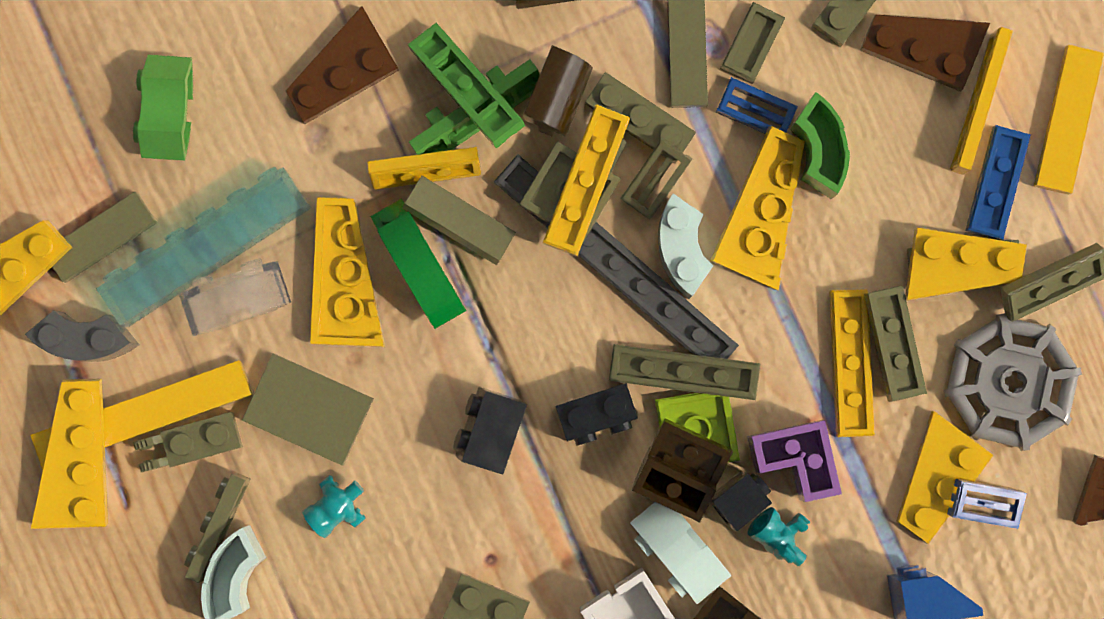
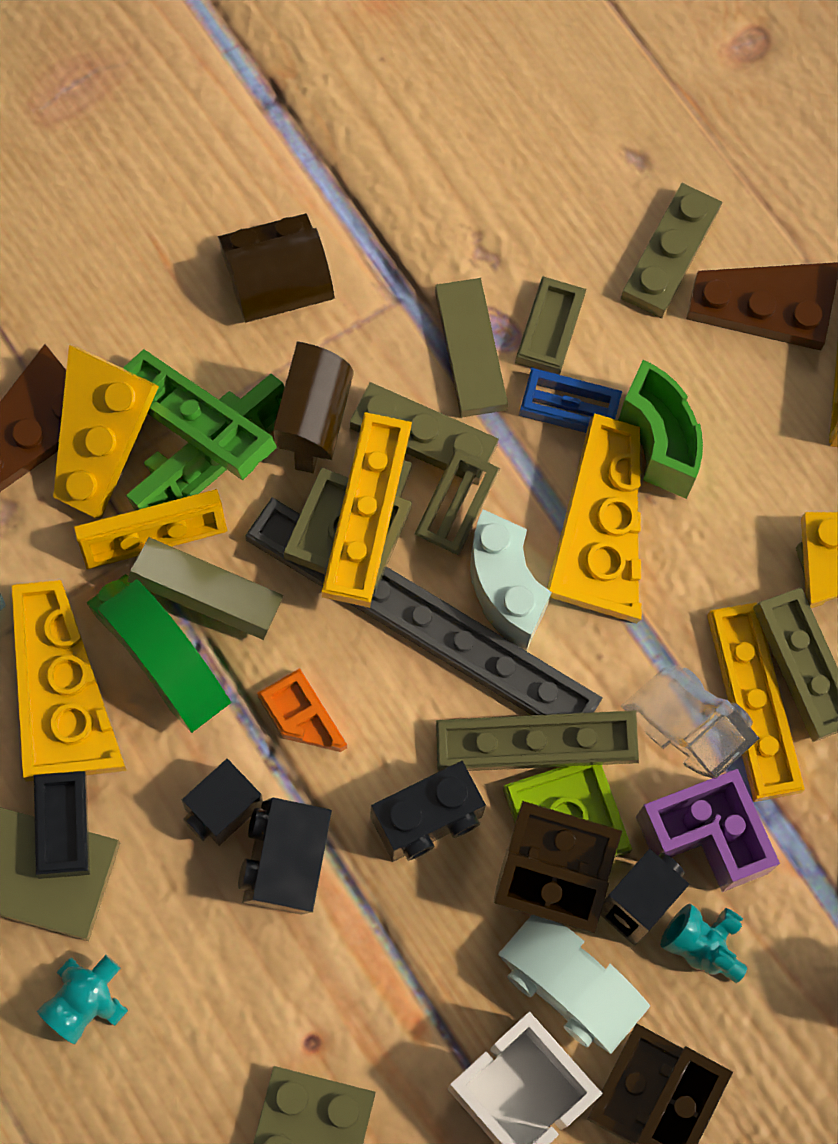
camera: 15 degrees left, 15 degrees down
(333, 382) = (61, 825): none -> black tile
(394, 84) = (97, 429): none -> yellow wing
(448, 384) = (221, 803): none -> black brick
(515, 322) = (300, 713): none -> orange tile
(804, 381) = (700, 725): none -> clear brick

